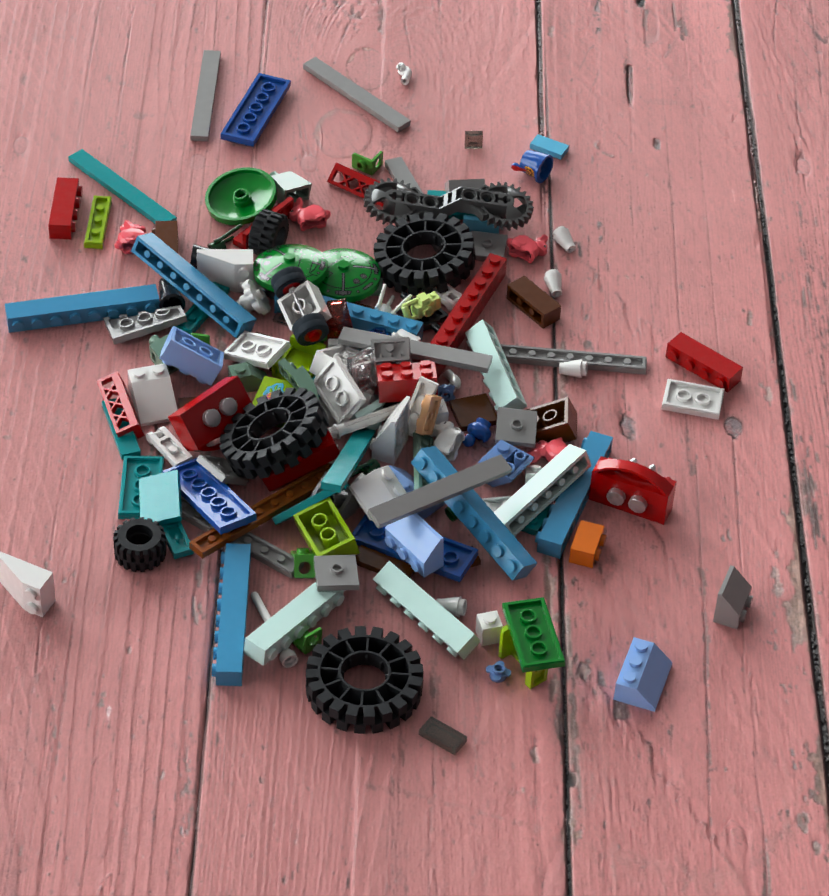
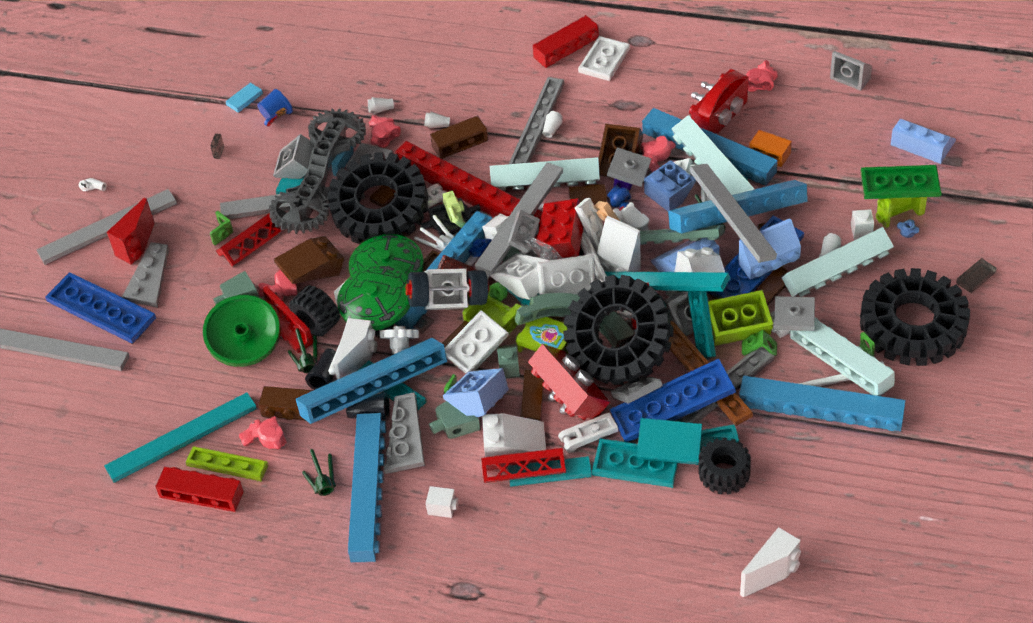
camera: 70 degrees left, 5 degrees up
(71, 358) = (441, 502): none -> white brick
(82, 281) = (323, 485): none -> dark green plant
(291, 131) = (146, 282): none -> light grey wing
(332, 222) = (311, 260): none -> reddish brown slope
(343, 105) = (132, 232): none -> red slope
(697, 528) = (761, 77): none -> coral animal

